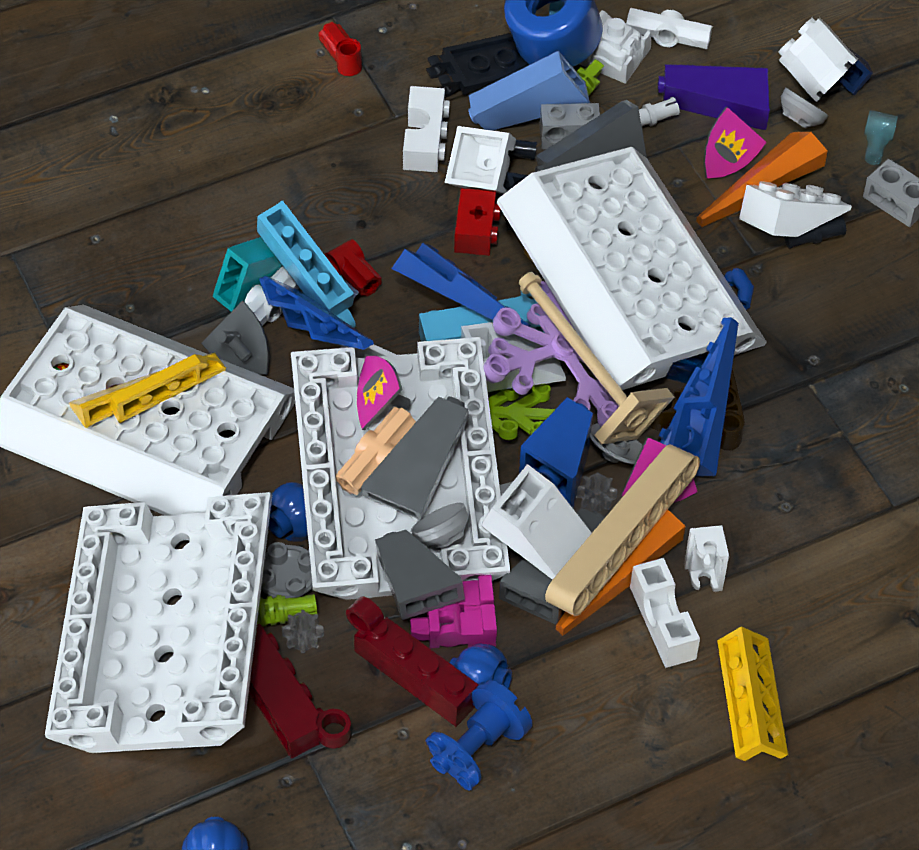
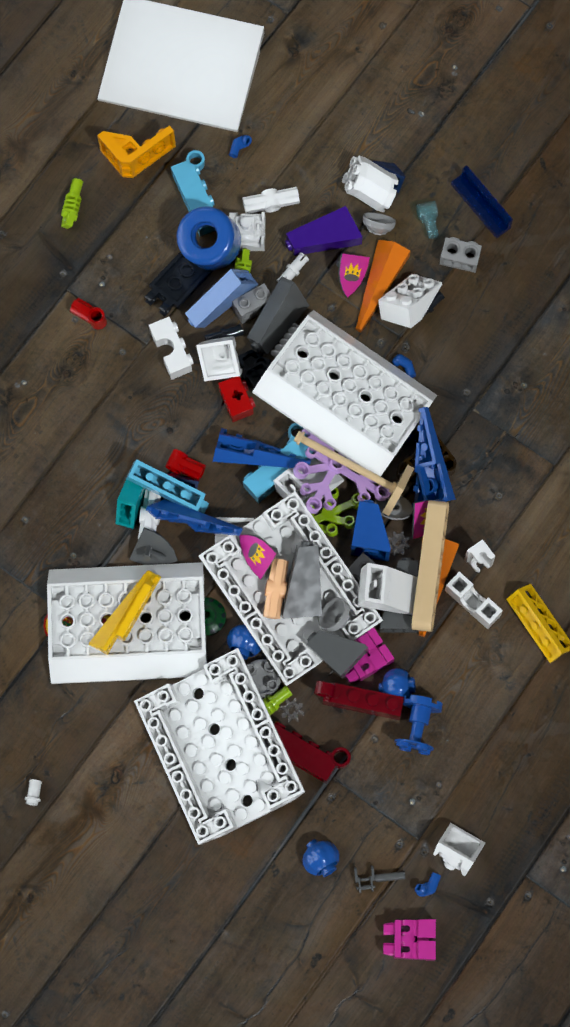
camera: 25 degrees left, 20 degrees up
(269, 470) = (217, 616): none -> dark green dish

